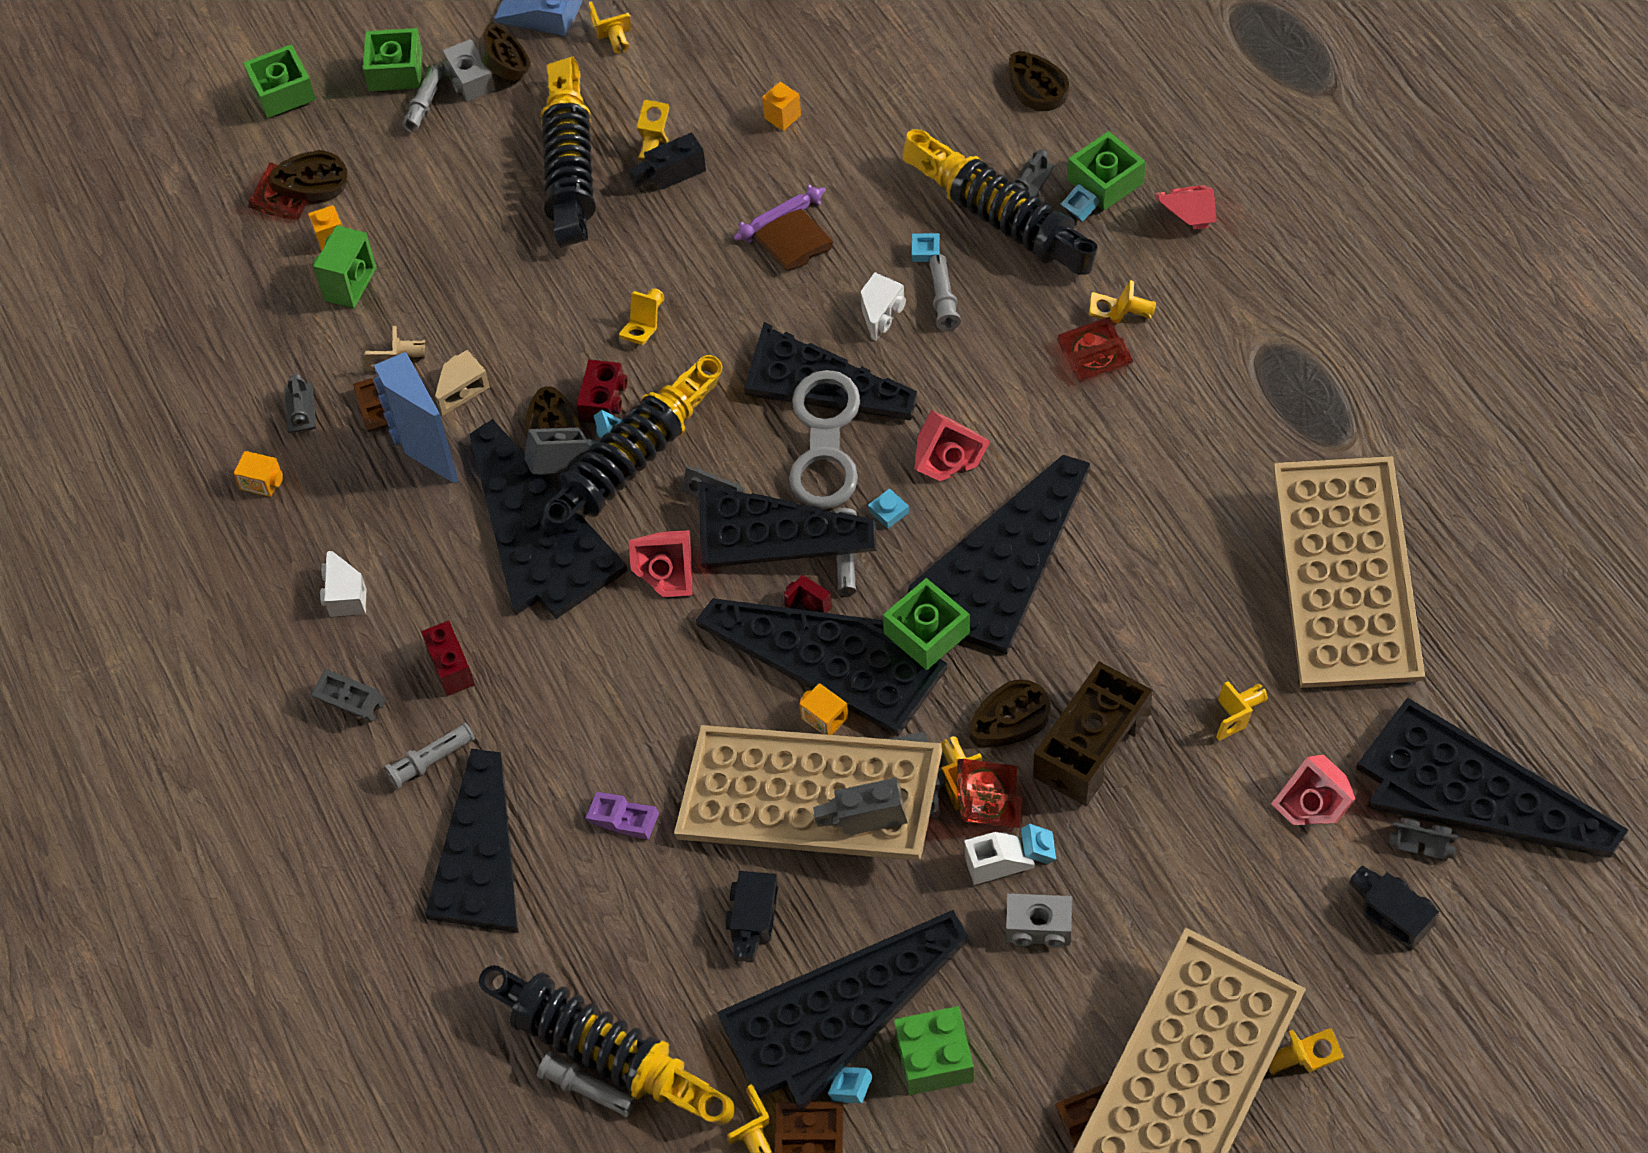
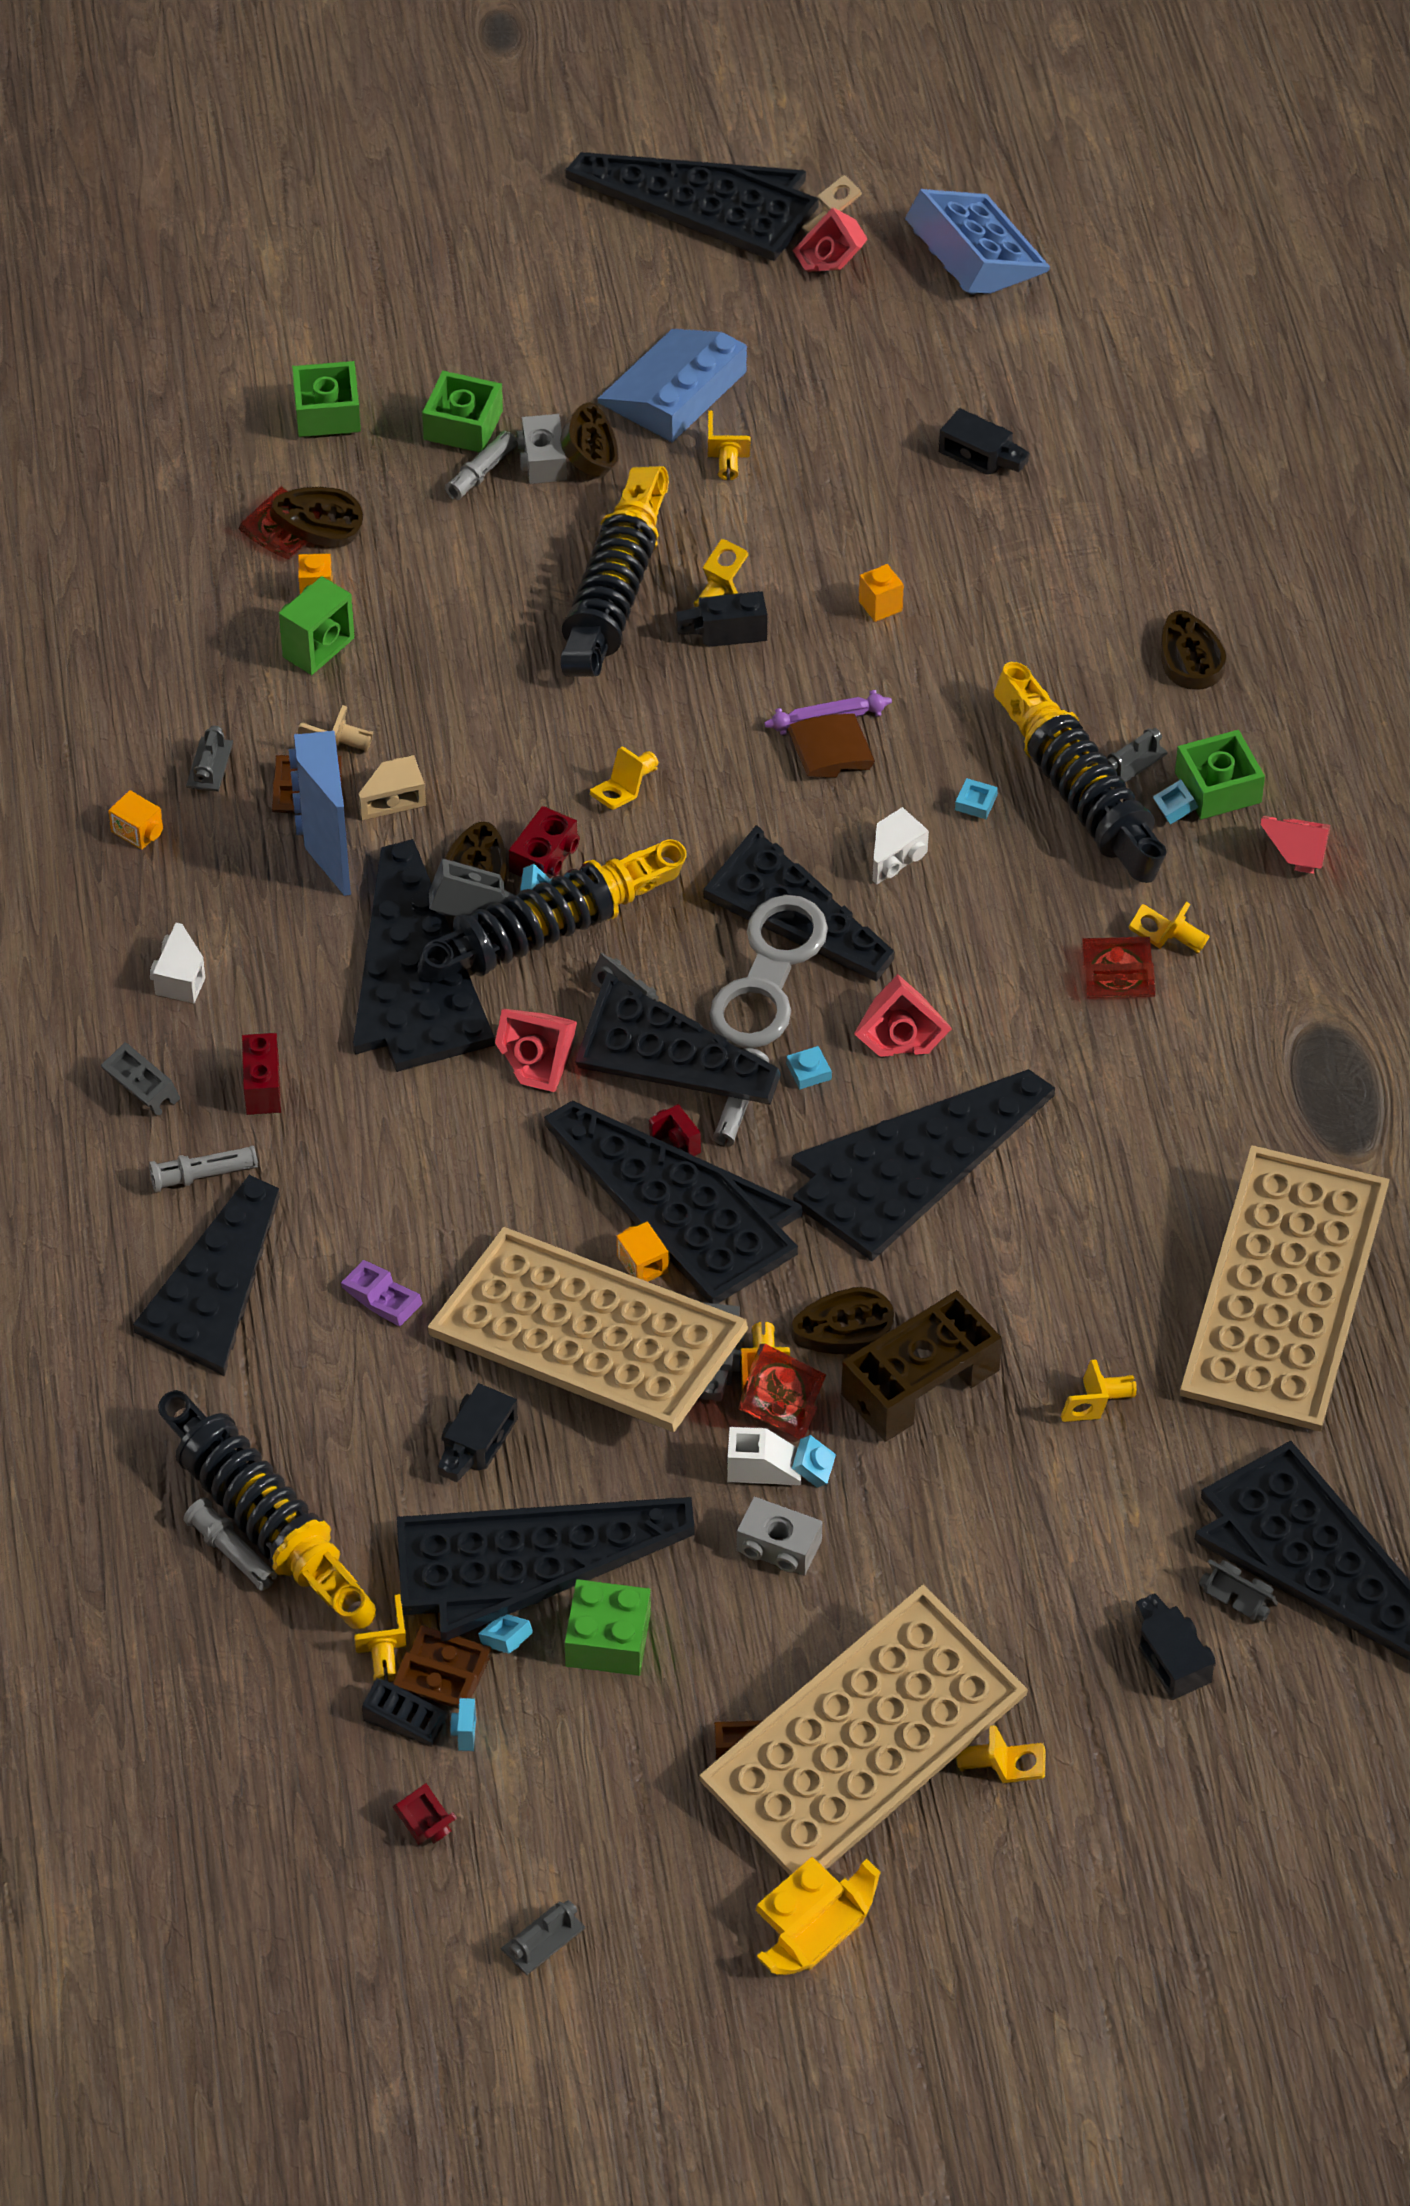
camera: 15 degrees right, 5 degrees down
(864, 808) = (634, 1356): dark grey hinge -> none
(926, 623) = (788, 1195): bright green brick -> none
(944, 302) = (971, 865): light grey pin -> none
(1315, 793) = (1138, 1503): coral slope -> none

